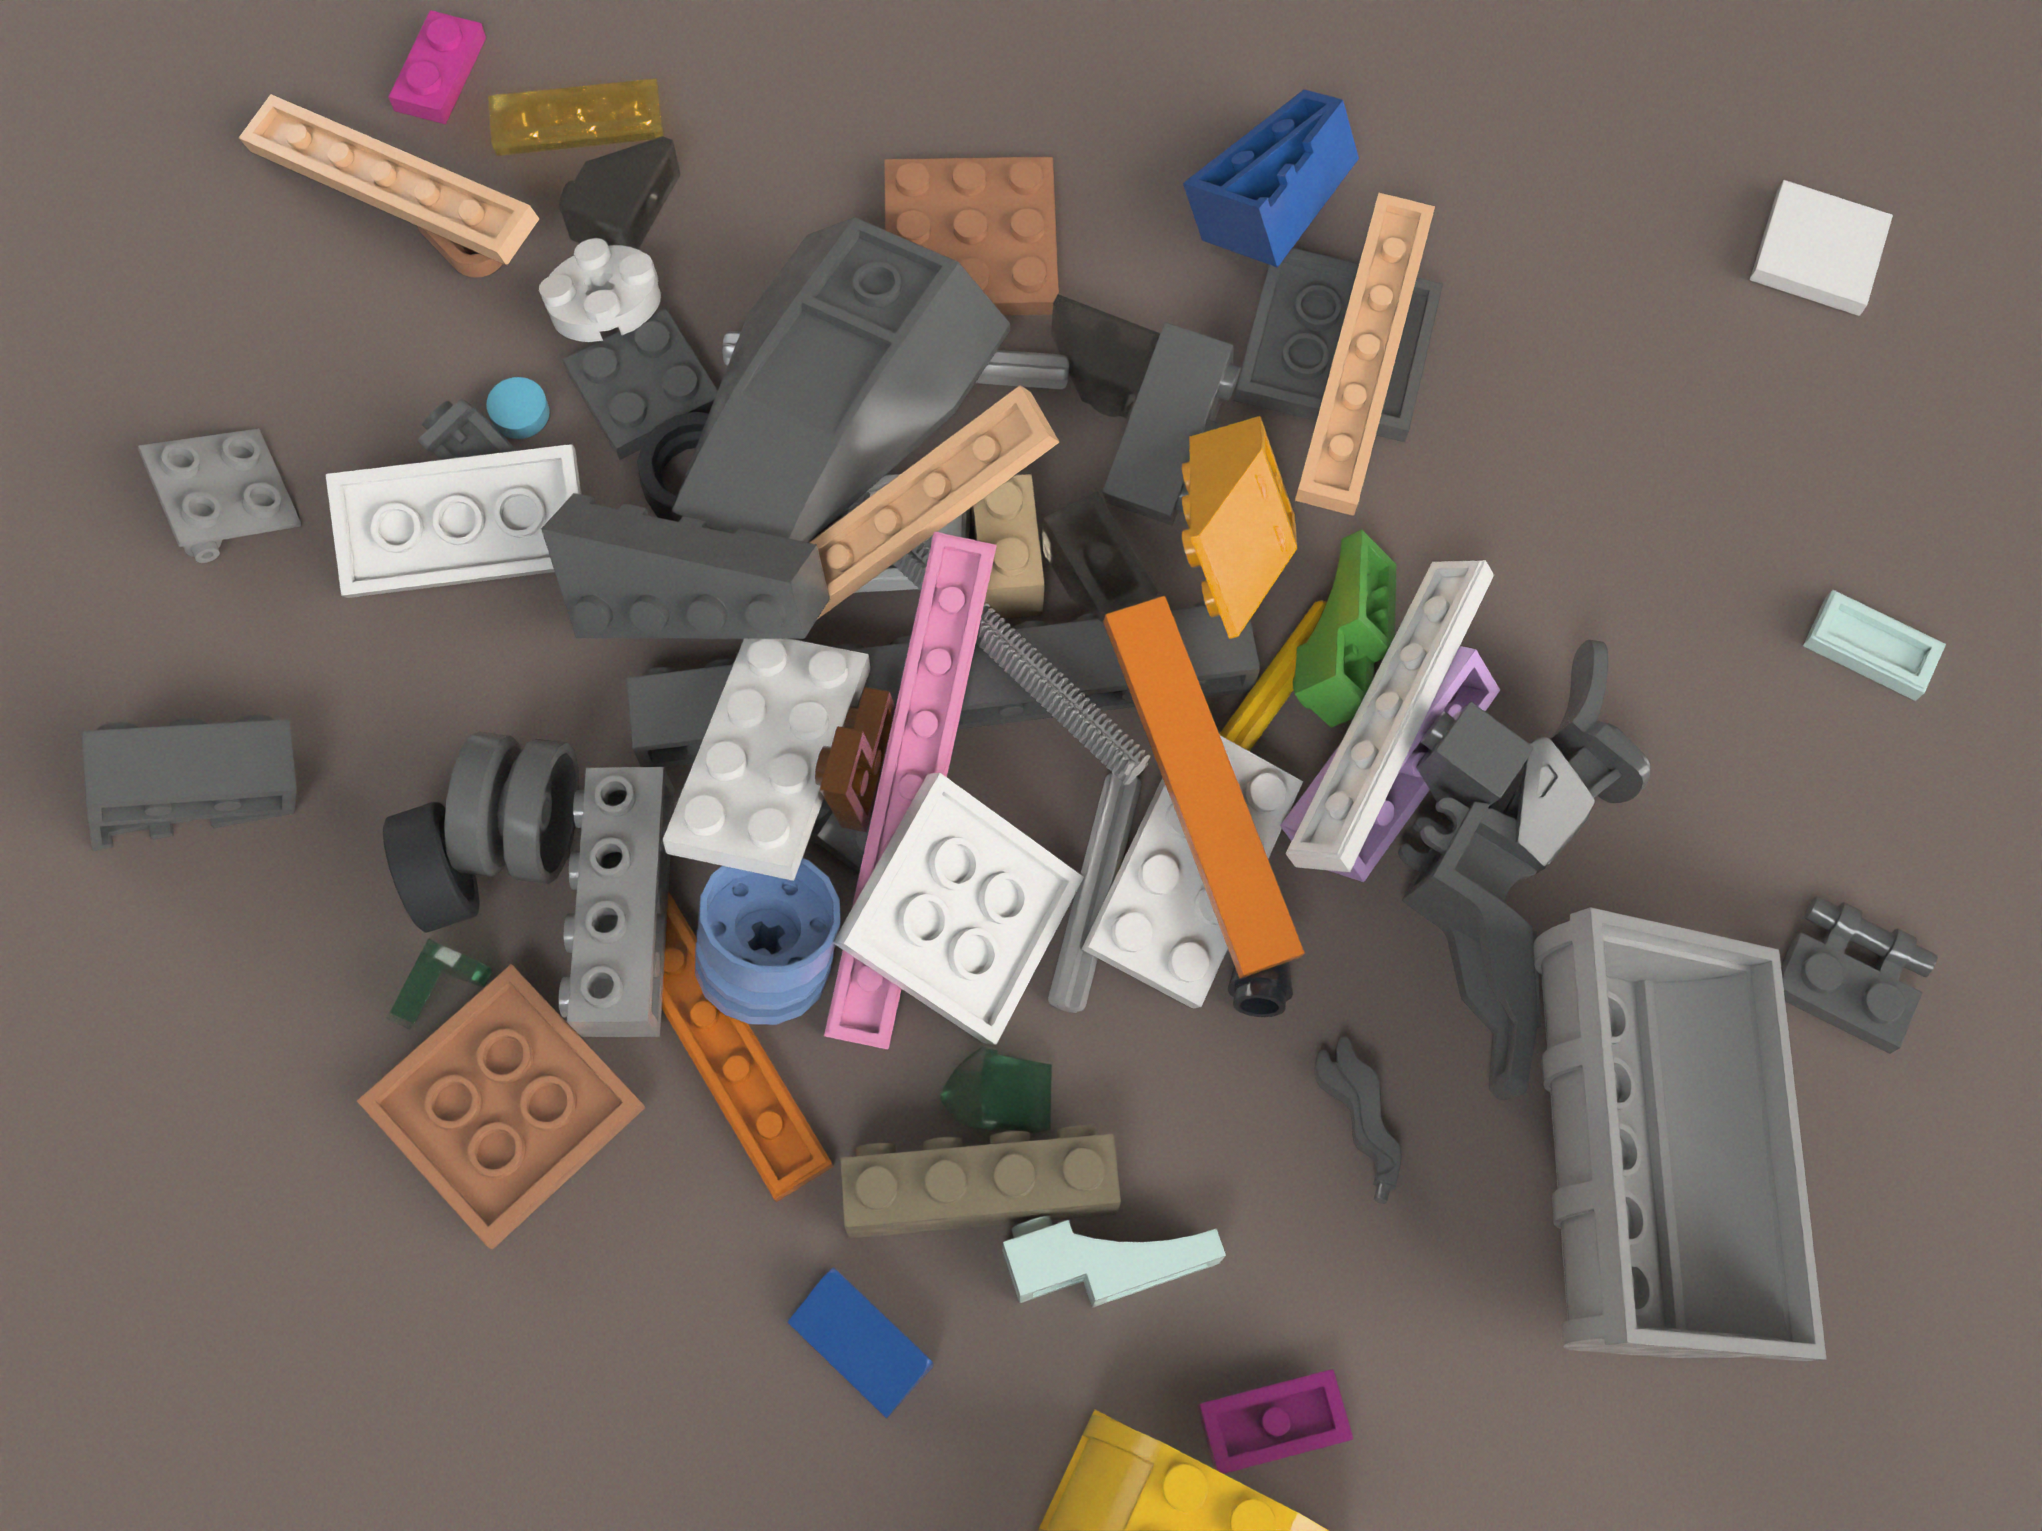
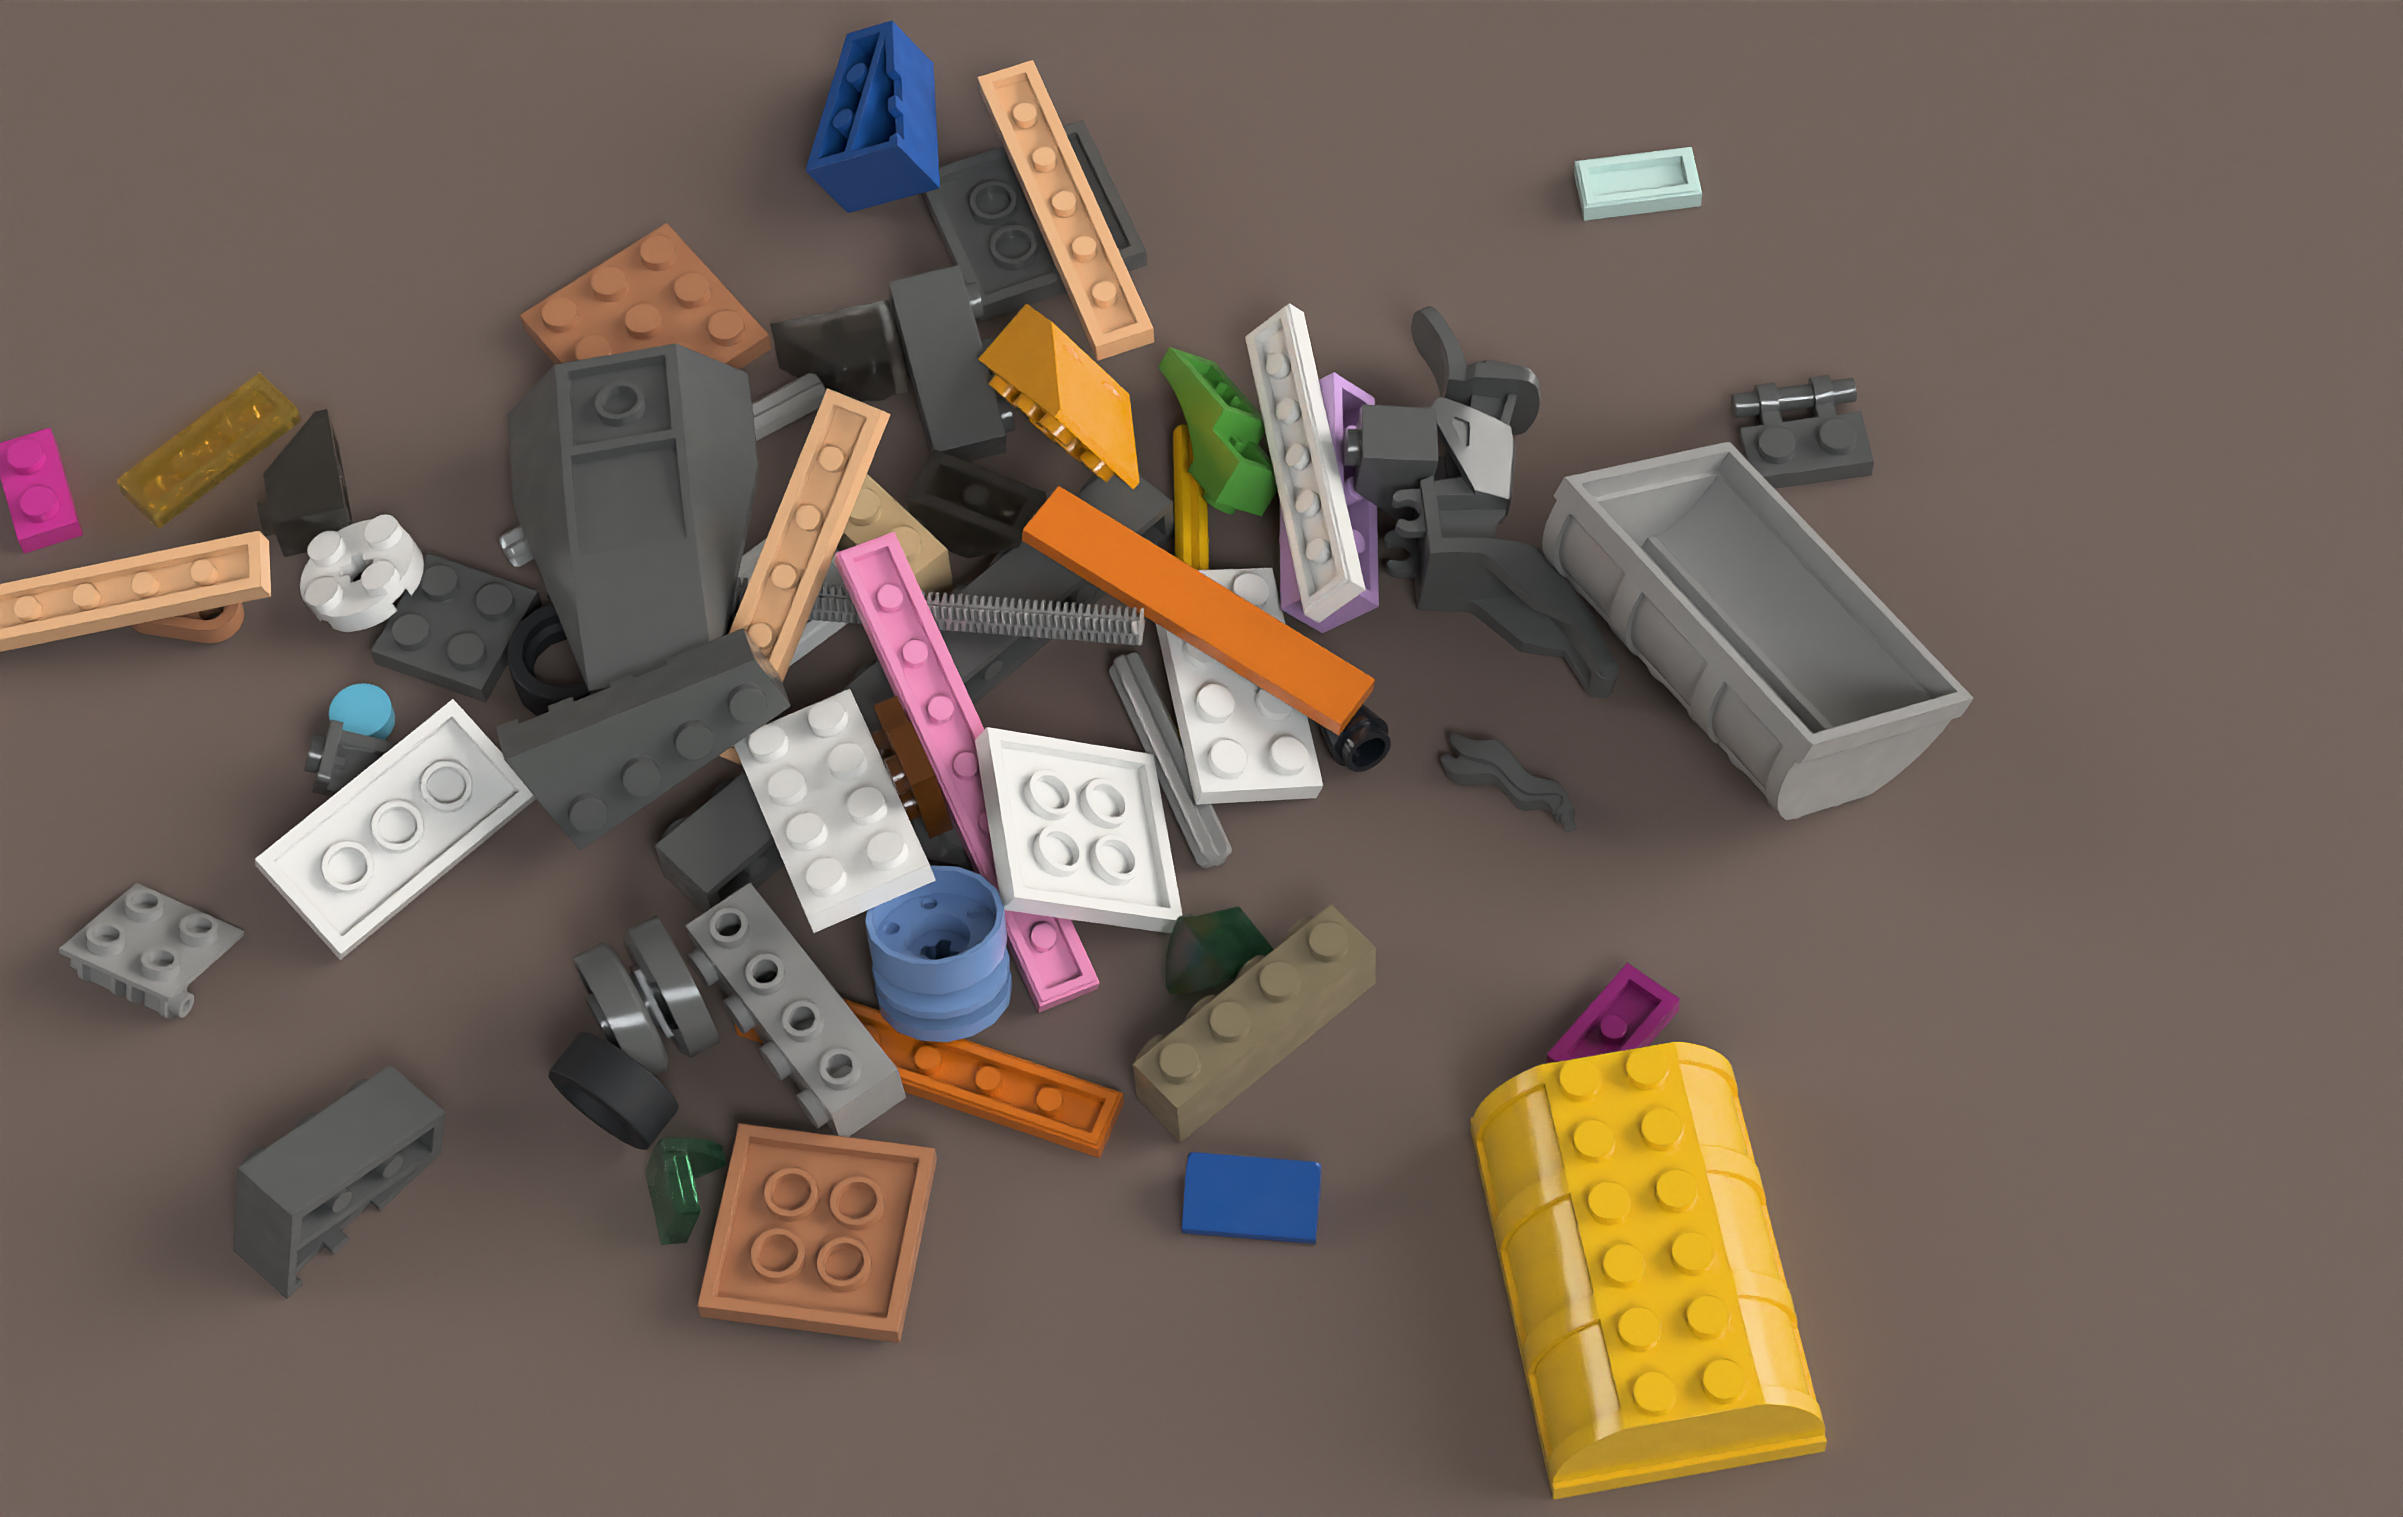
camera: 30 degrees left, 10 degrees down
(1053, 1257) = (1398, 1015): light aqua slope -> none

